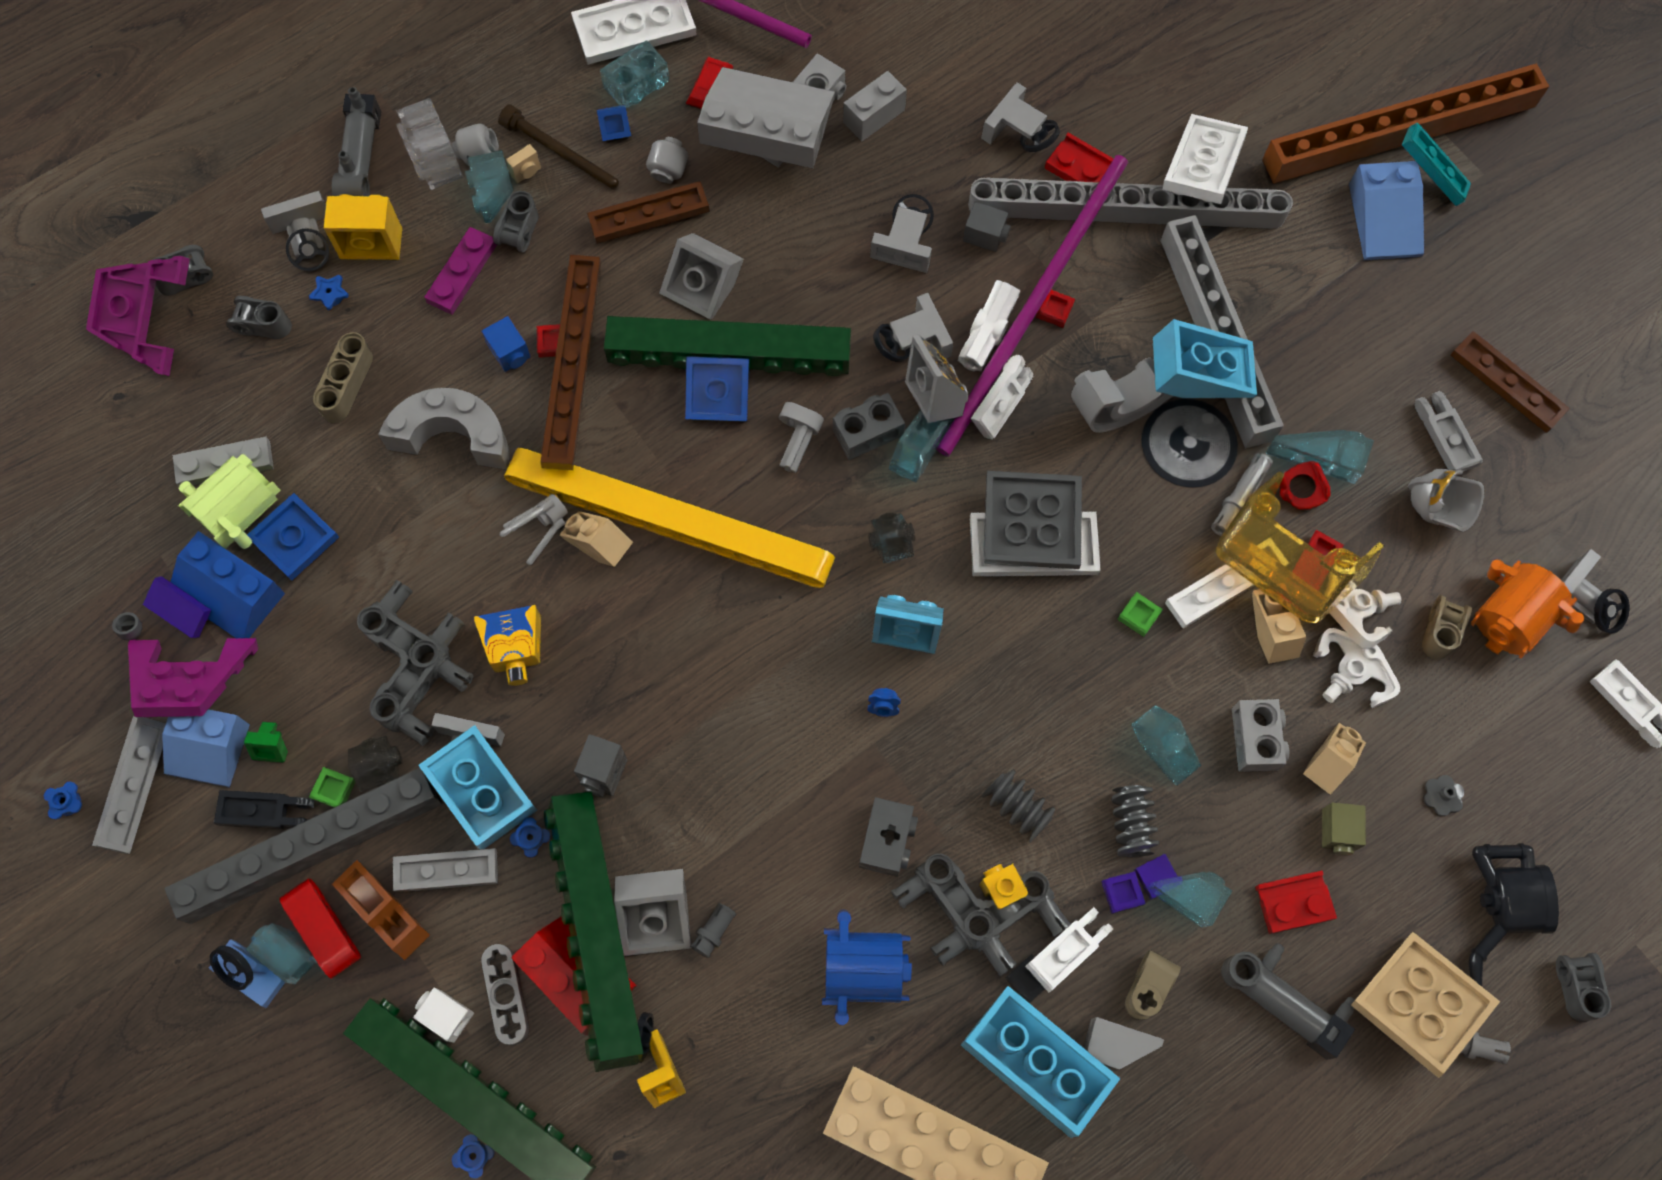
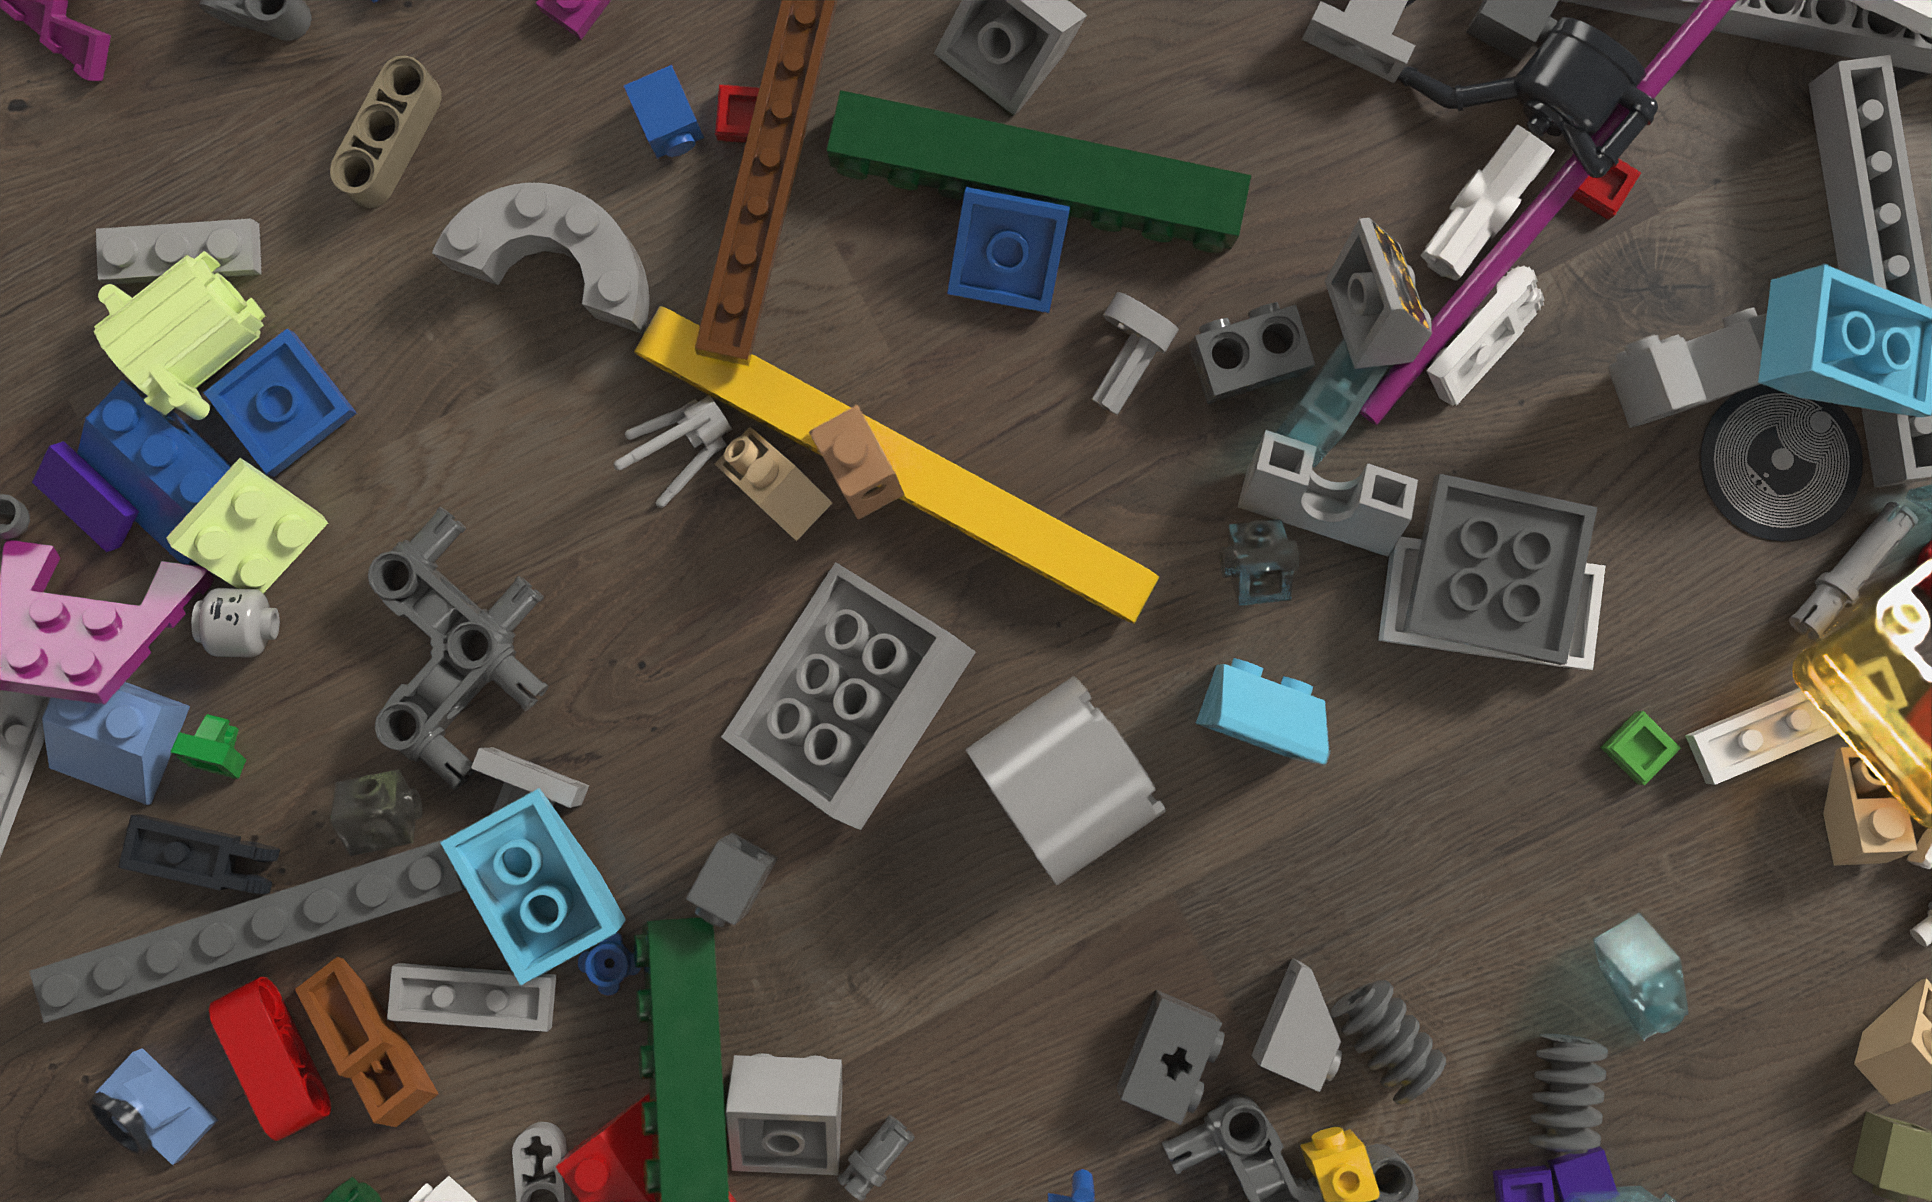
camera: 10 degrees right, 15 degrees up
(276, 665) = (234, 622): none -> light grey head
(280, 607) = (247, 529): none -> yellowish green plate
(281, 952) = (200, 1097): clear light blue slope -> none
(332, 788) = (307, 835): bright green tile -> none
(511, 641) = (614, 640): torso -> none
(640, 506) = (857, 462): none -> medium nougat torso
(658, 653) = (848, 696): none -> light grey slope
(794, 672) = (1066, 779): none -> light grey brick
(884, 702) = (1200, 836): blue plate -> none
(924, 322) = (1358, 192): light grey piece -> none
(946, 503) = (1360, 512): none -> light grey arch
(965, 810) = (1299, 1032): none -> light grey slope
(1020, 259) = (1564, 90): none -> black piece
(1250, 735) = (1779, 986): light grey brick -> none

